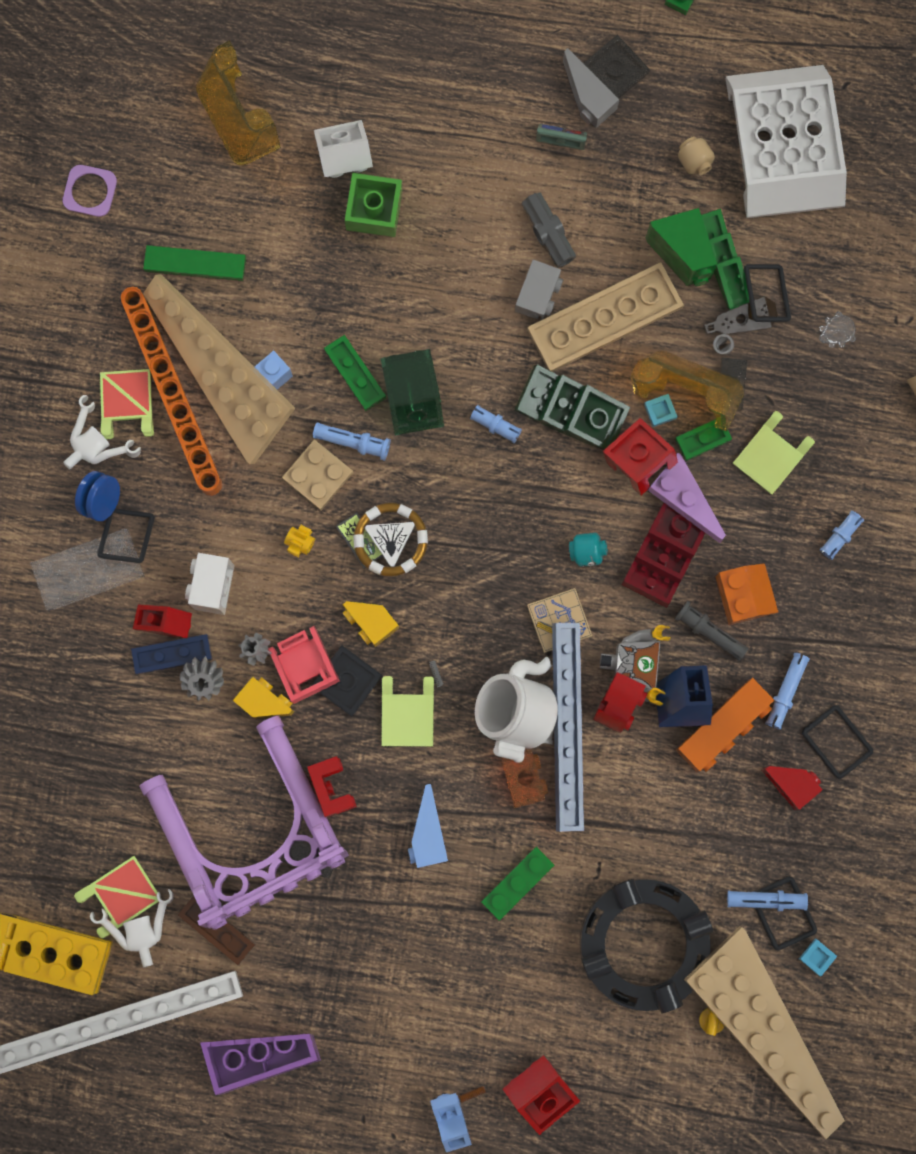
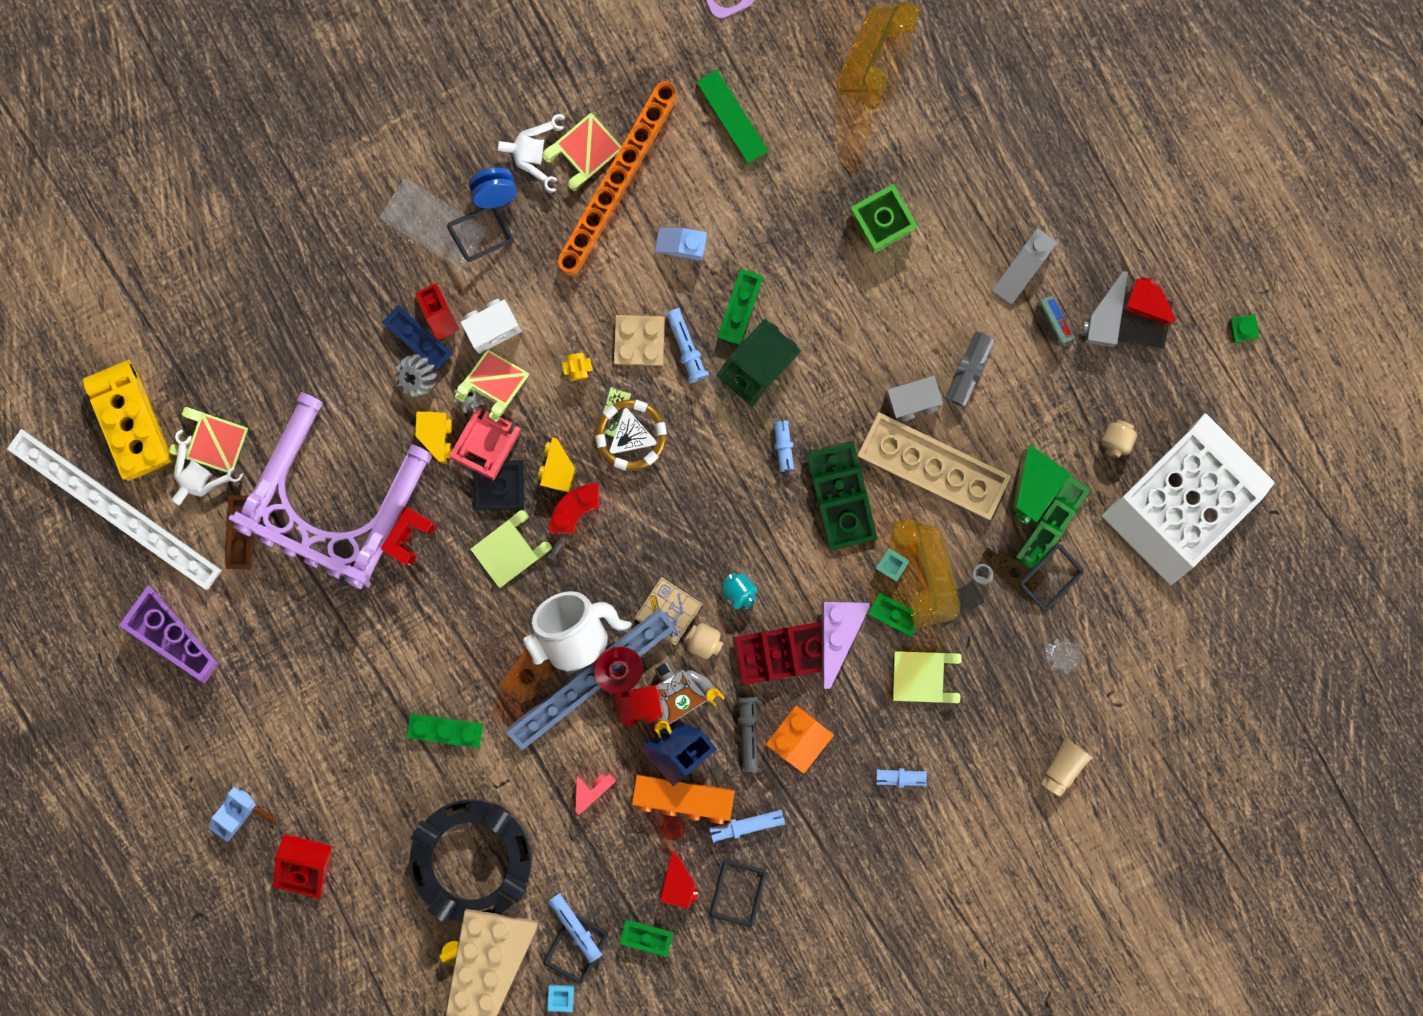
camera: 55 degrees right, 5 degrees up
(235, 388) = (655, 228): tan wing -> none
(257, 616) = (495, 380): none -> flag
(343, 149) = (911, 159): white slope -> none
(413, 632) = (573, 507): none -> red brick
(427, 839) = (427, 637): light blue slope -> none
(498, 125) = (1024, 266): none -> light grey slope
(588, 695) = (622, 678): none -> dark red dish
(605, 49) = (1149, 301): none -> red slope
(607, 609) = (703, 641): none -> tan head
(640, 454) = (842, 575): red panel -> none
(664, 805) = (586, 795): none -> coral slope
(743, 754) = (672, 827): none -> clear red plate
(819, 846) = (646, 937): none -> green plate

